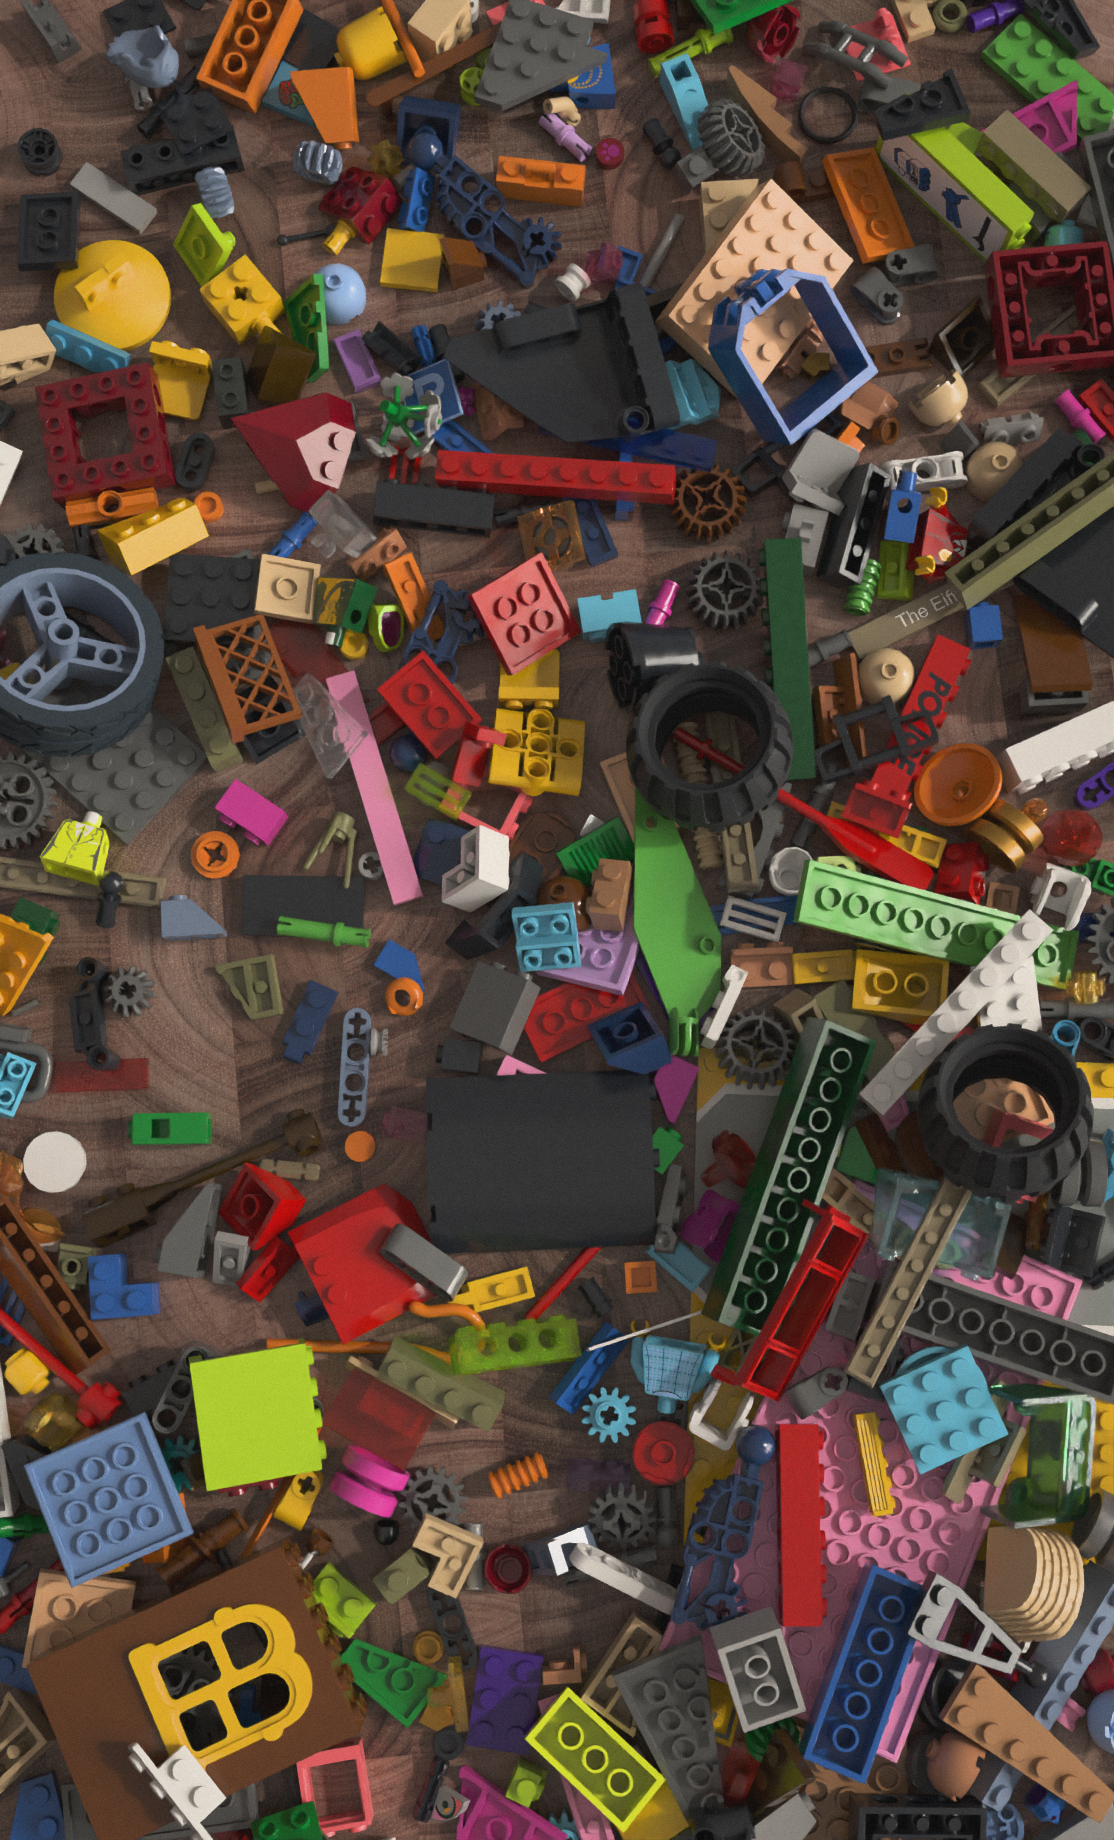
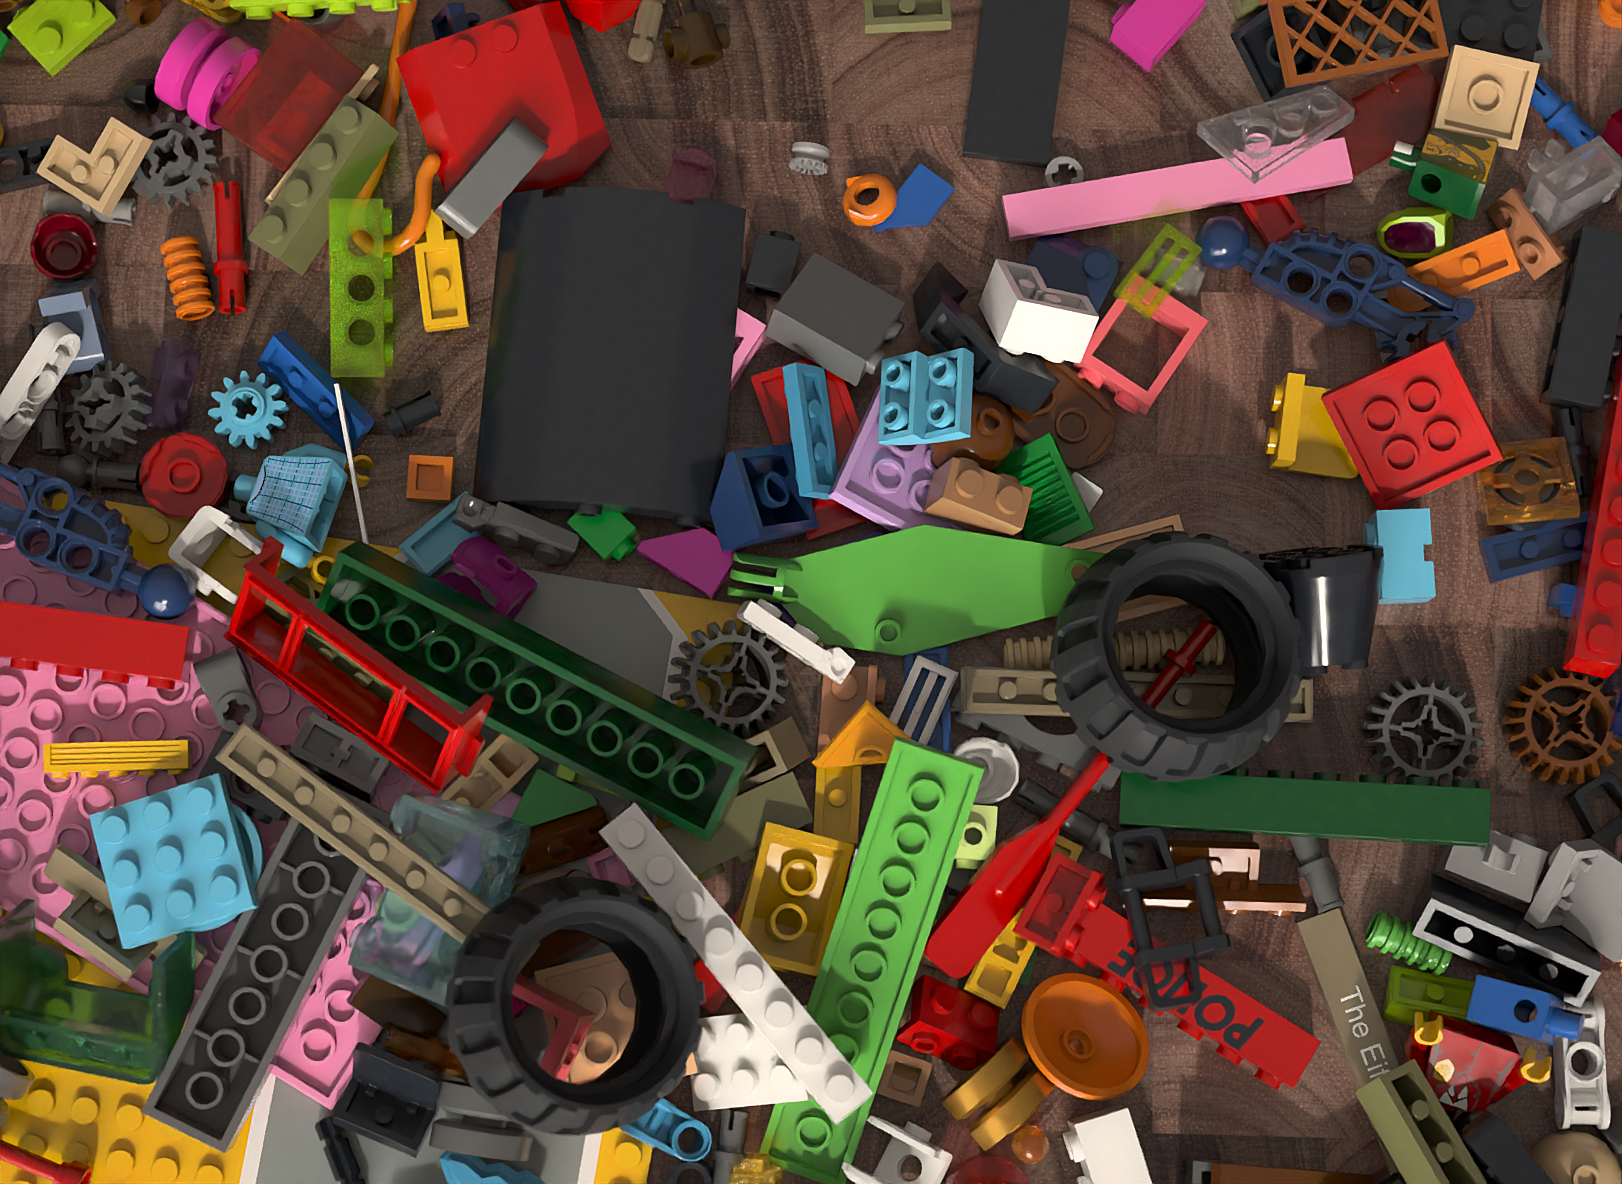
camera: 100 degrees right, 0 degrees up
(308, 1021) = (851, 68): dark blue hinge -> none
(326, 932) = (969, 112): bright green pin -> none
(337, 830) = (1122, 134): olive plant -> none
(351, 1067) = (780, 115): sand blue beam -> none
(354, 646) = (1390, 188): yellow tile -> none
(360, 1146) = (667, 119): orange tile -> none
(402, 1573) = (77, 101): olive torso -> none
(428, 704) = (1286, 270): red plate -> none
(474, 753) = (1207, 325): red bracket -> none
(493, 1447) = (230, 264): none -> red pin
(538, 752) = (1235, 385): yellow connector -> none
(561, 1283) = (437, 368): red piece -> none
(577, 1013) = (810, 429): none -> dark azure plate
(661, 606) = (1406, 636): dark pink pin -> none
(733, 1160) = (575, 619): clear red tile -> none
(785, 948) = (861, 741): none -> light orange tile
(884, 674) = (1265, 957): tan cylinder -> none
(983, 626) = (1329, 1117): blue brick -> none

